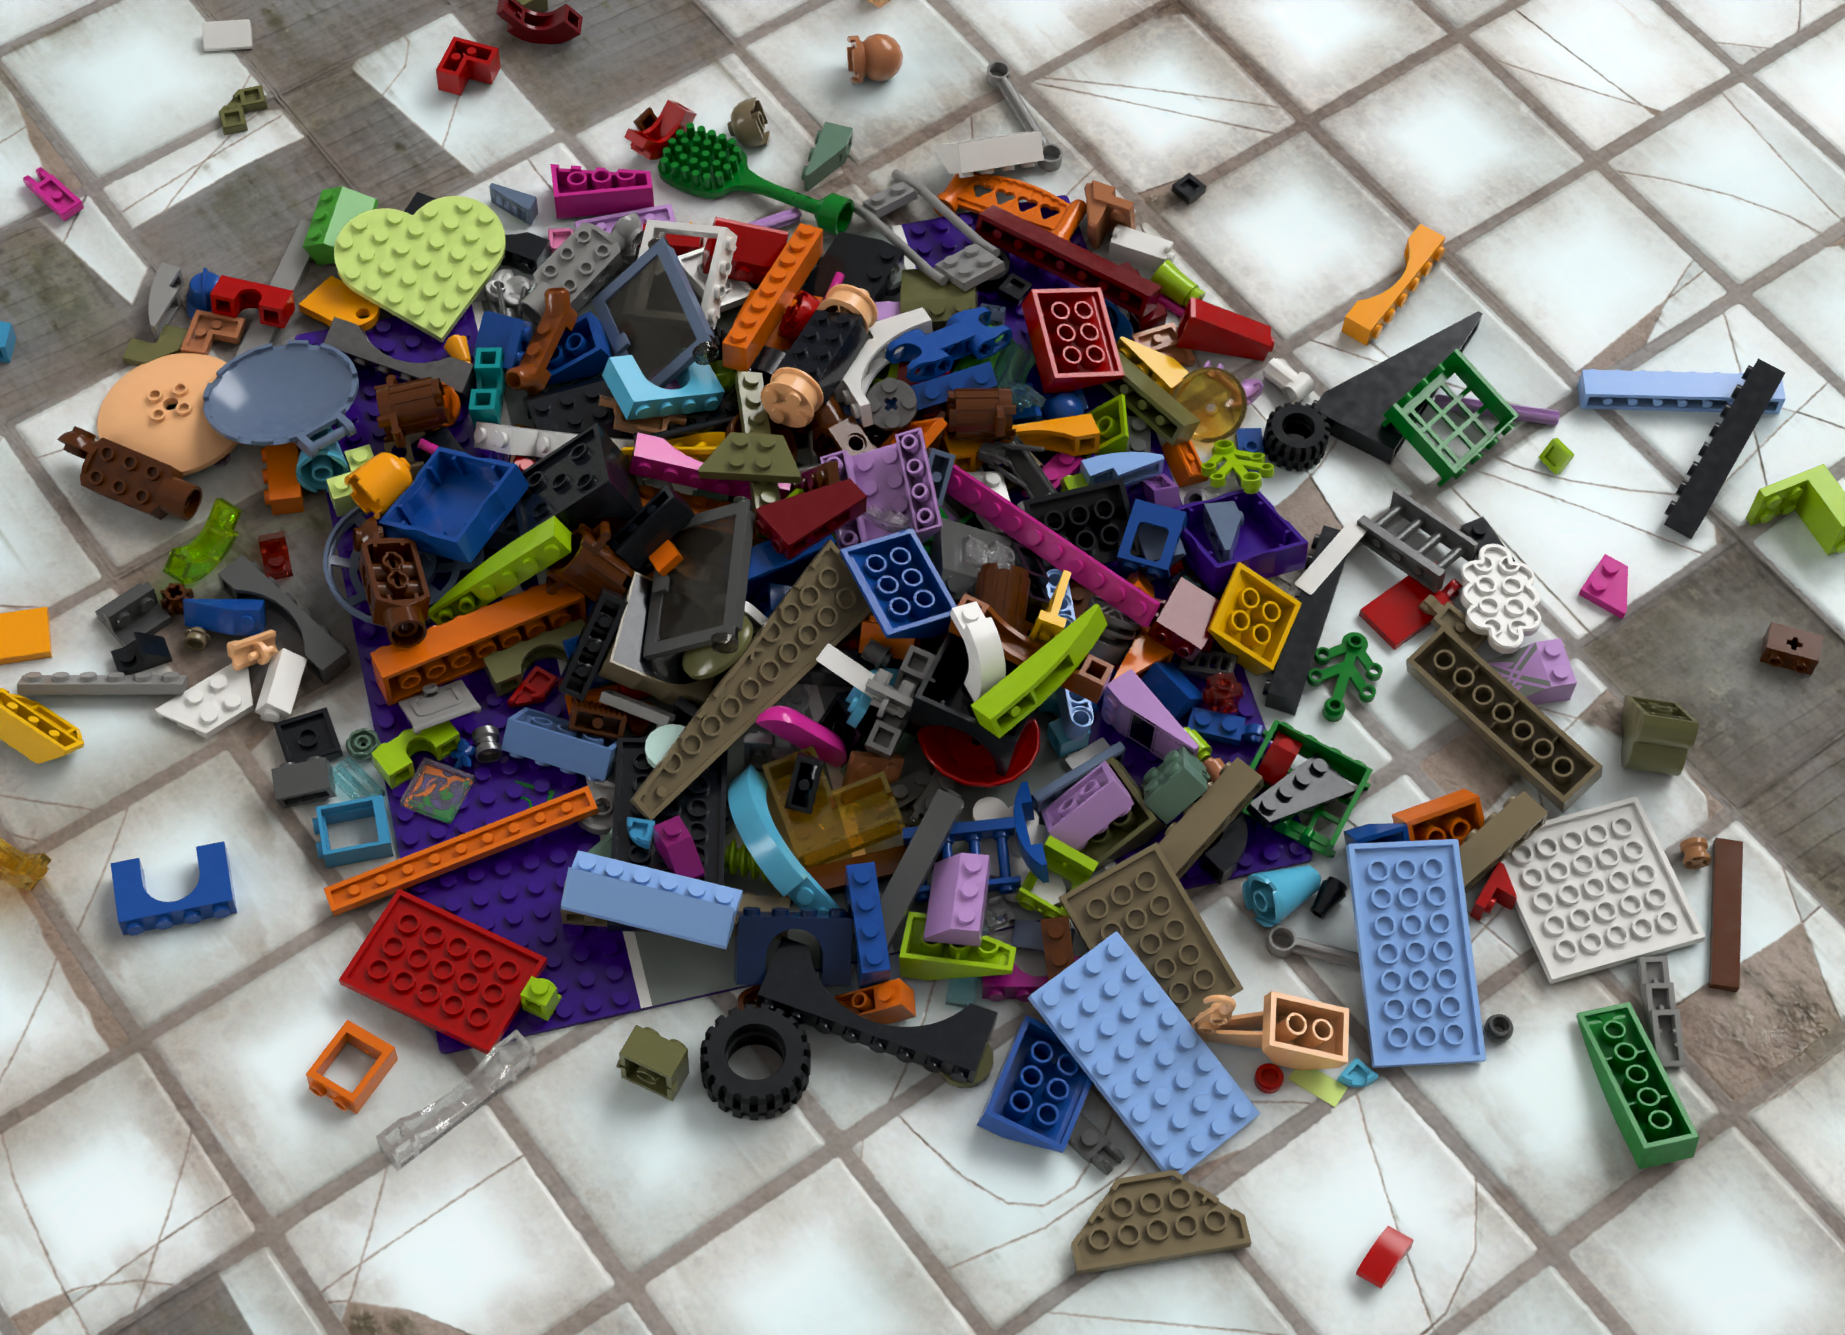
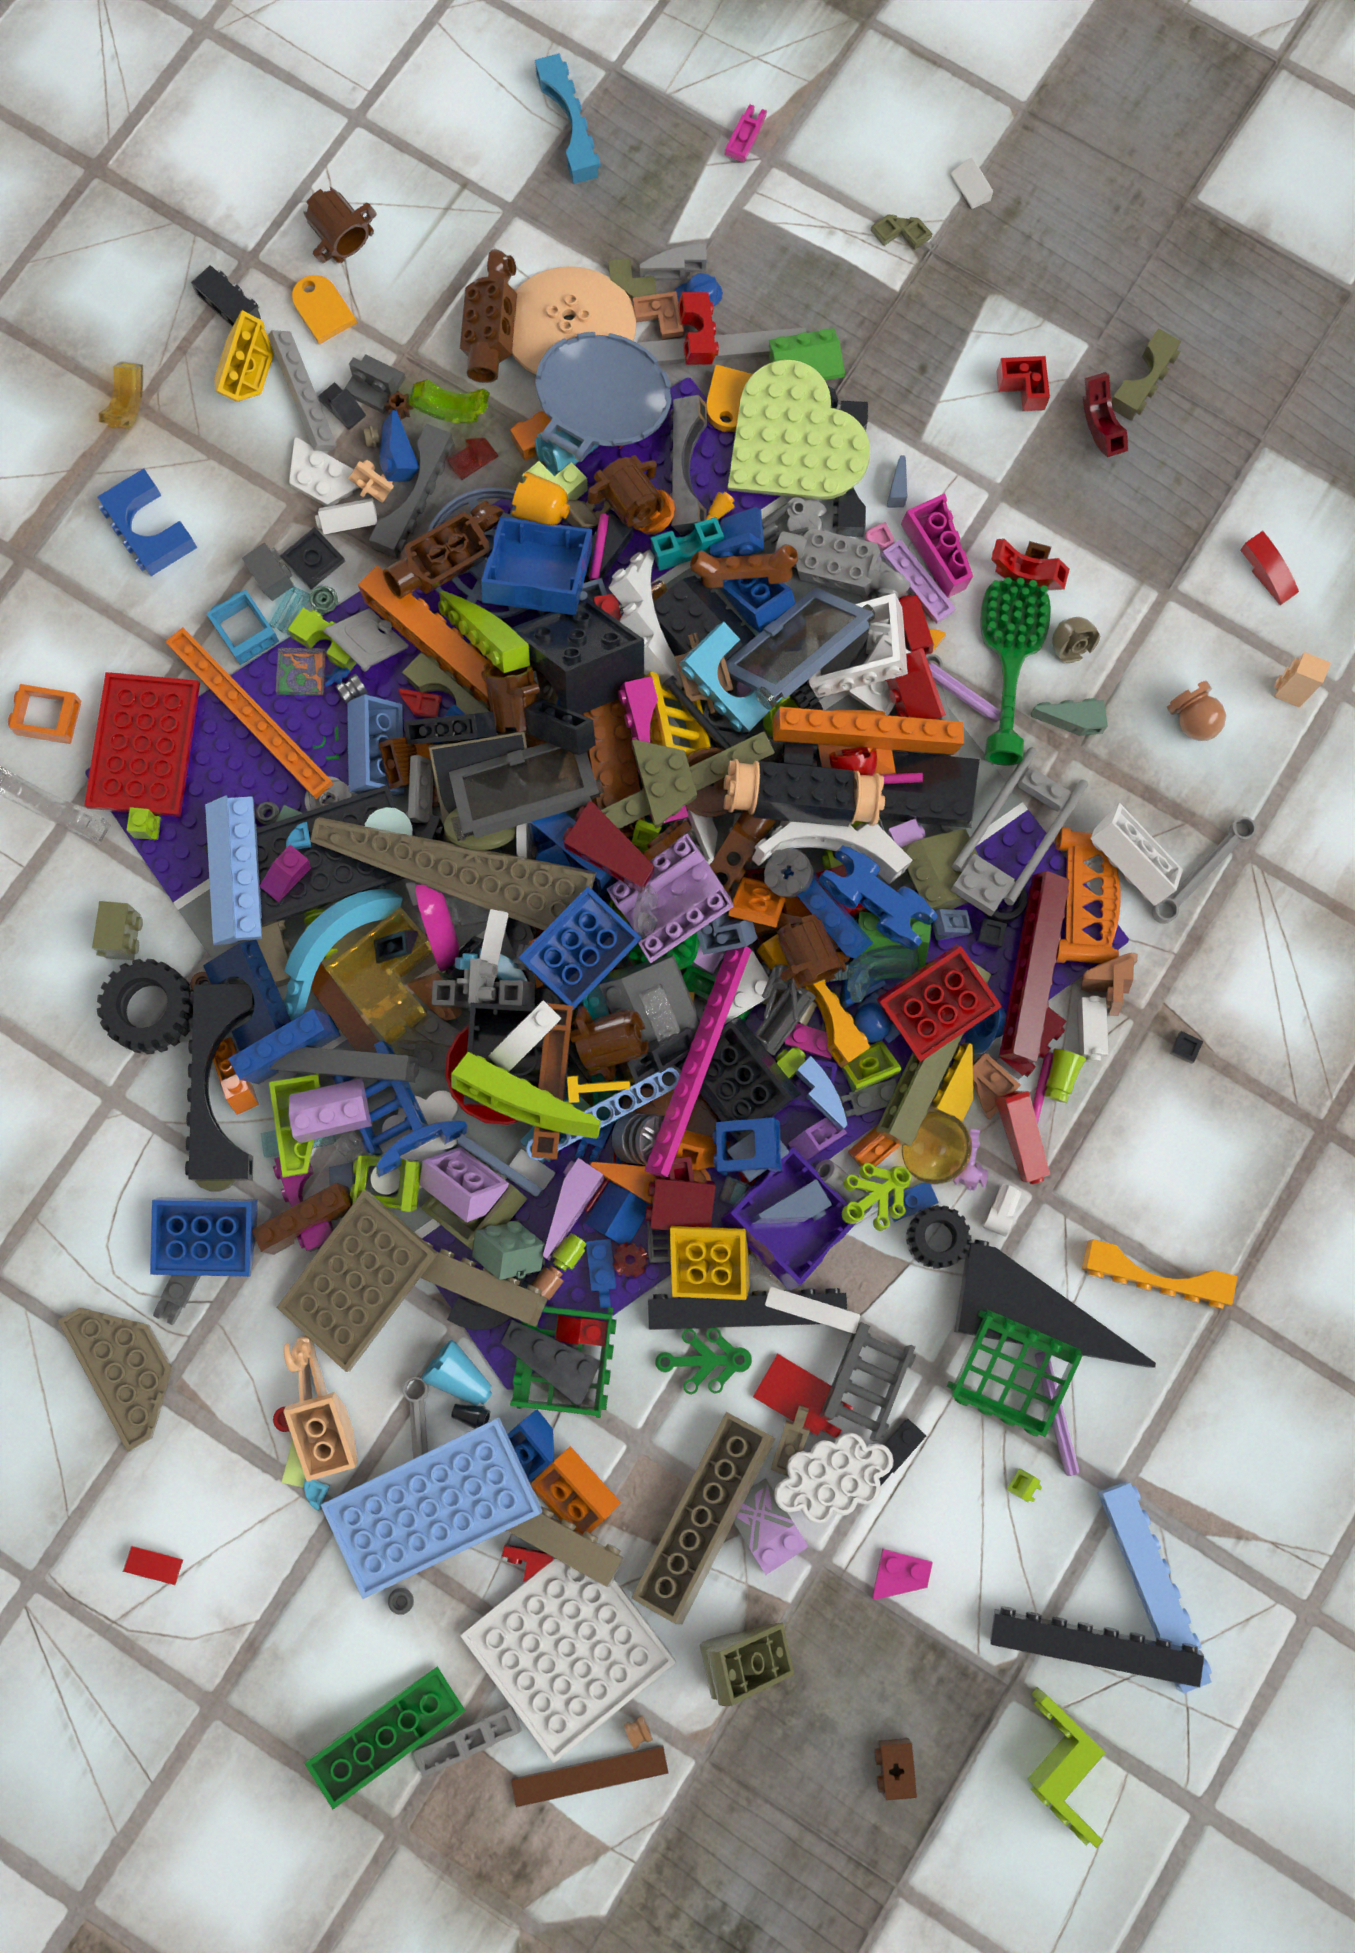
camera: 70 degrees right, 20 degrees up
(665, 558) = (539, 750): orange tile -> none
(1143, 1056) = (254, 1309): light blue plate -> none

